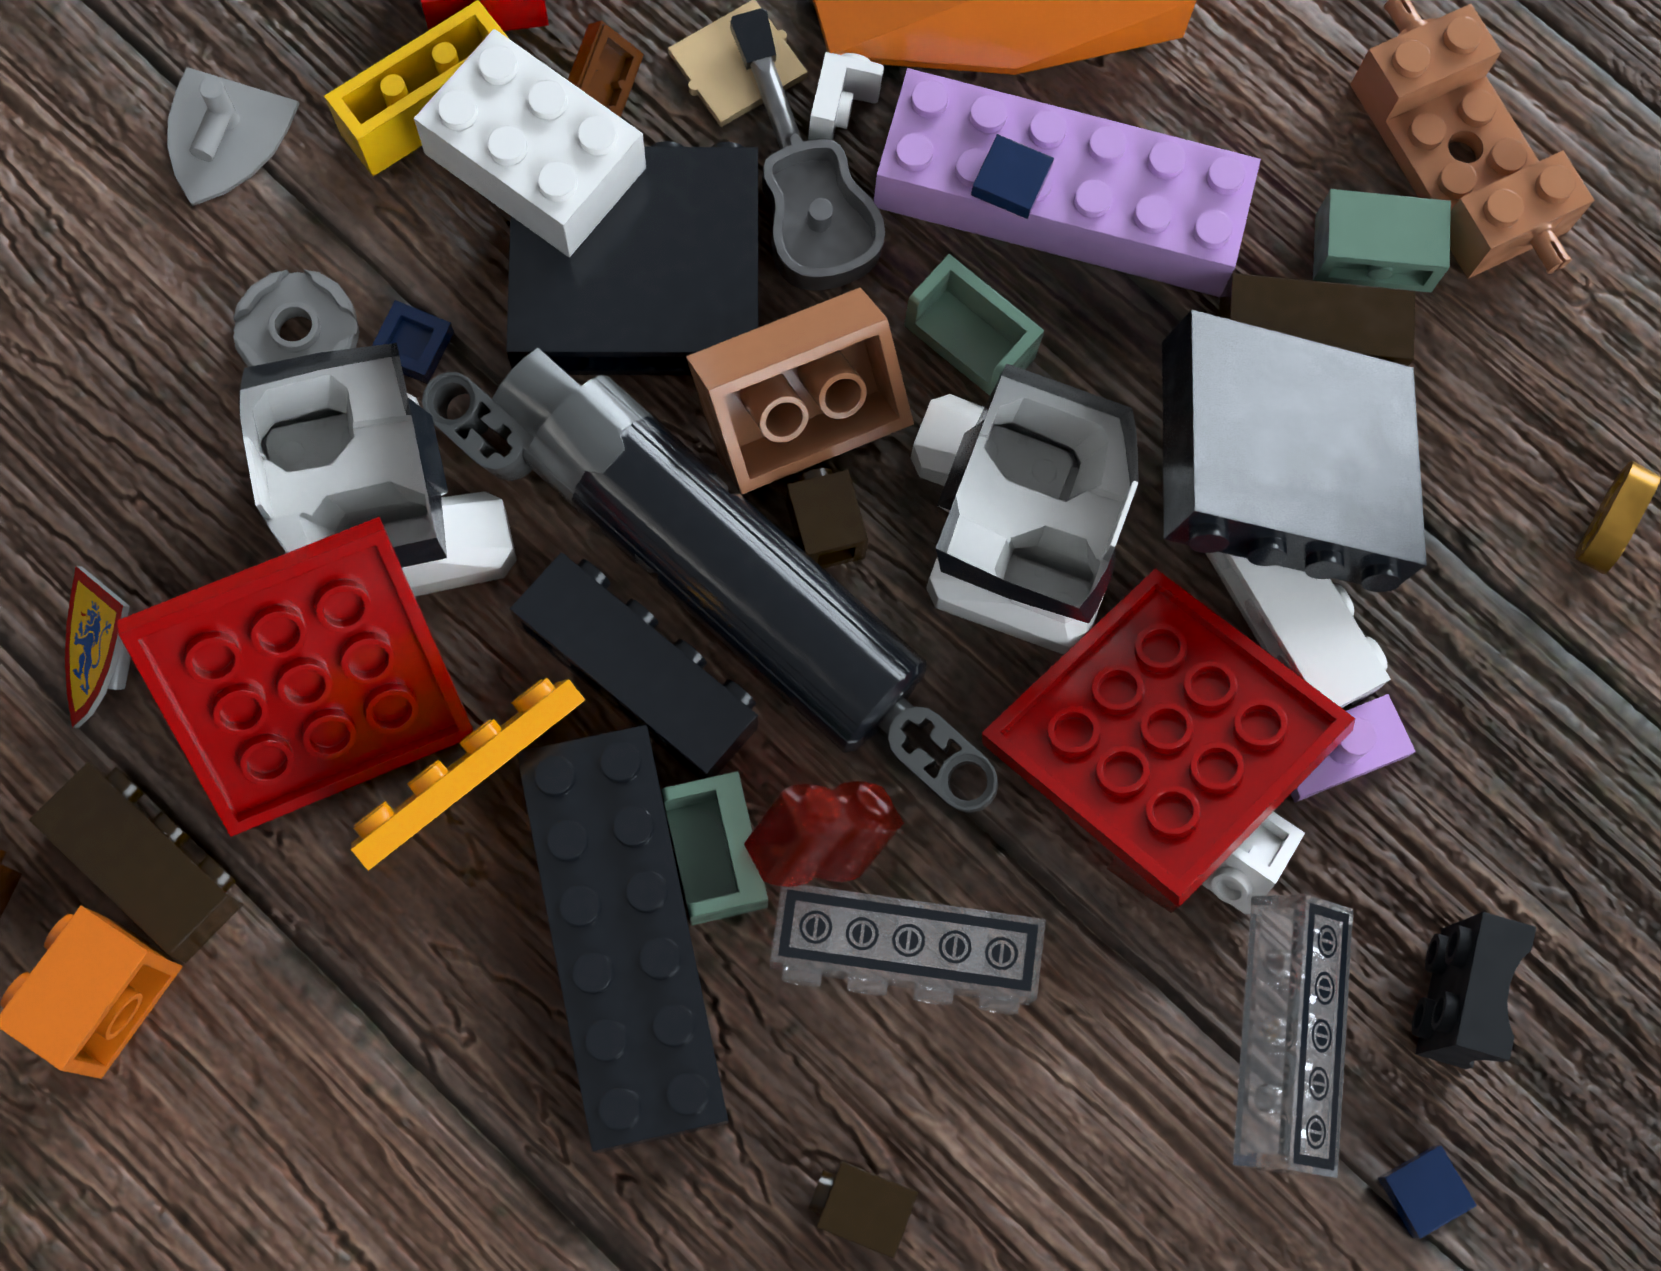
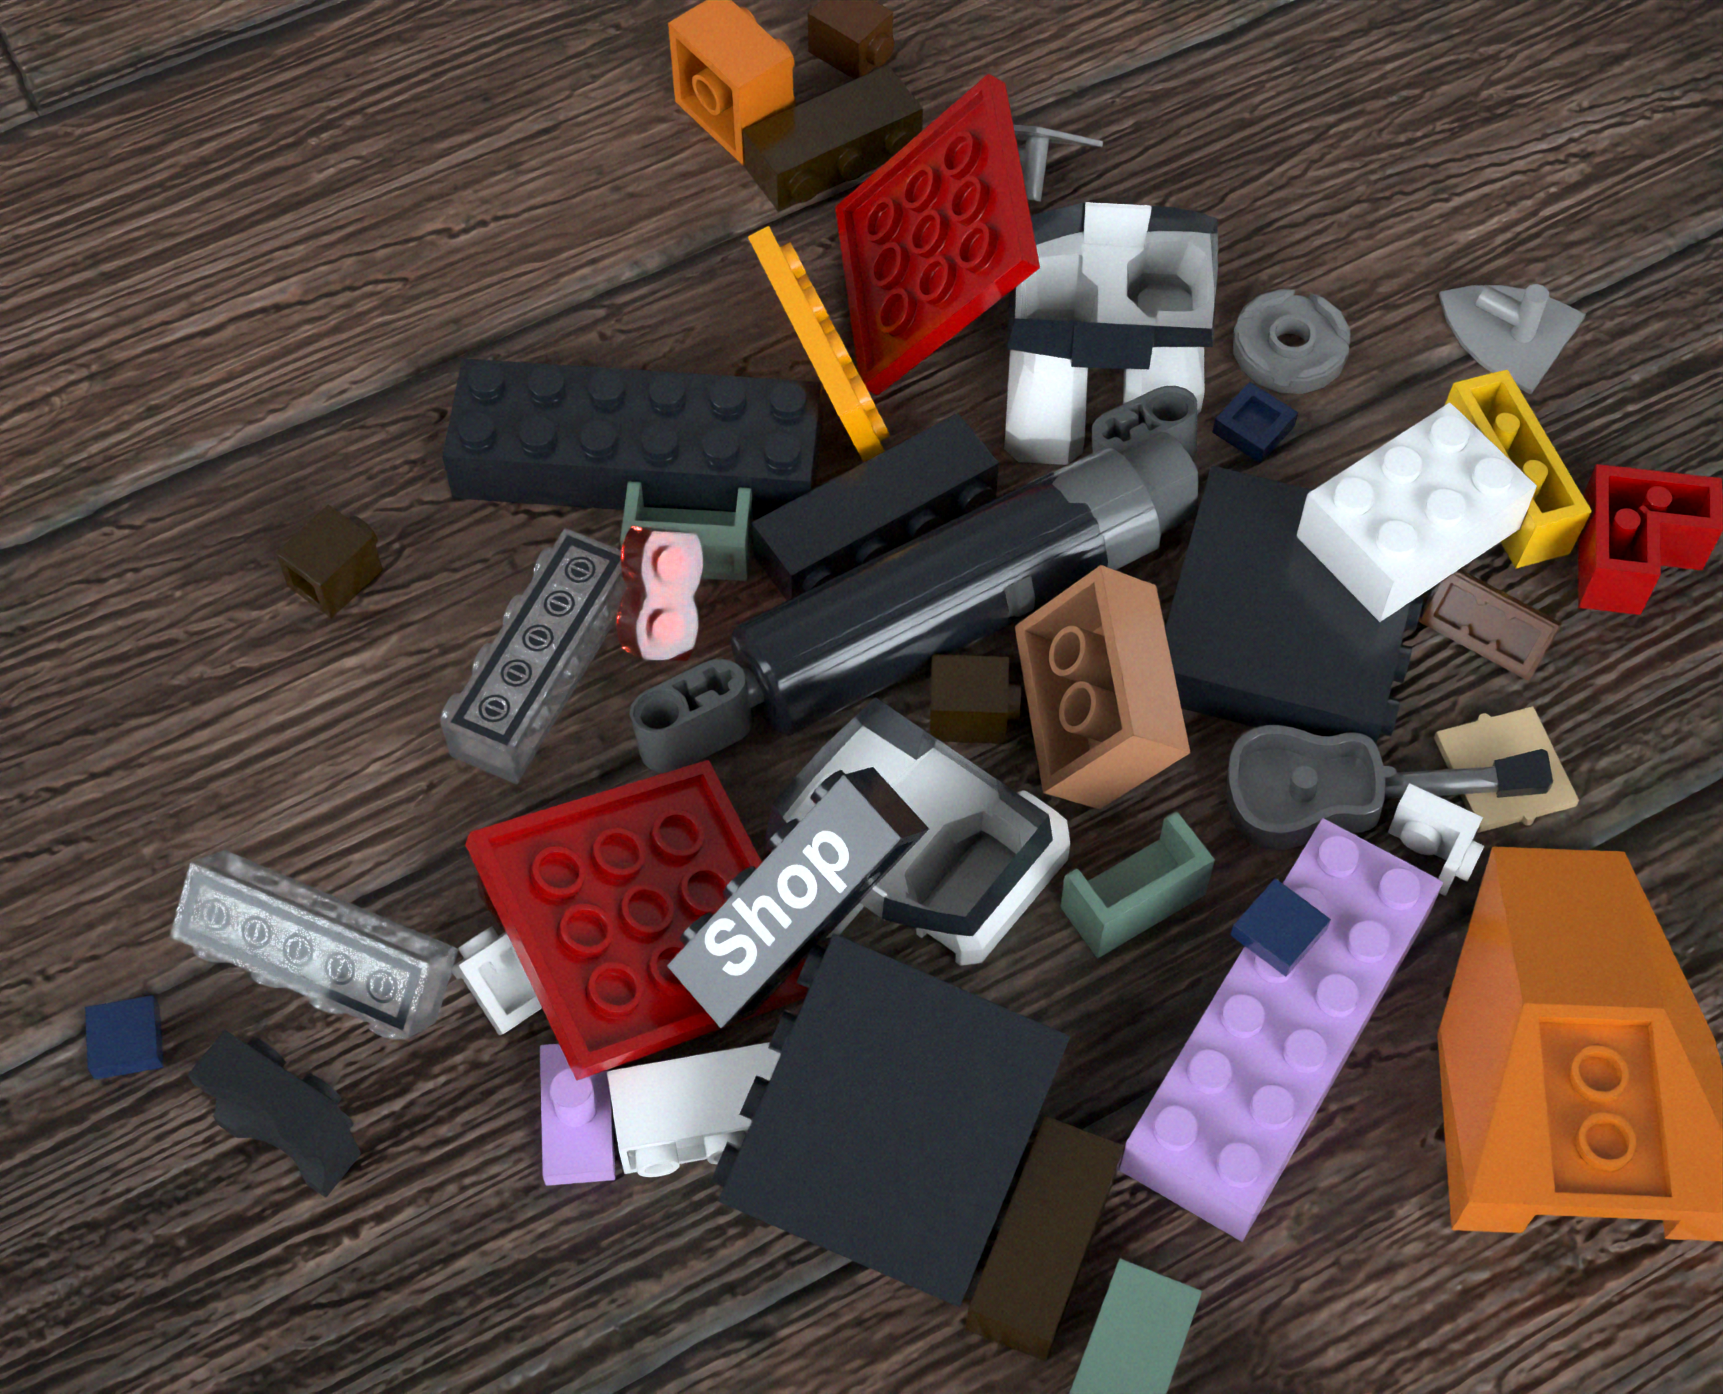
camera: 115 degrees right, 15 degrees down
(1163, 554) = (796, 894): none -> brick

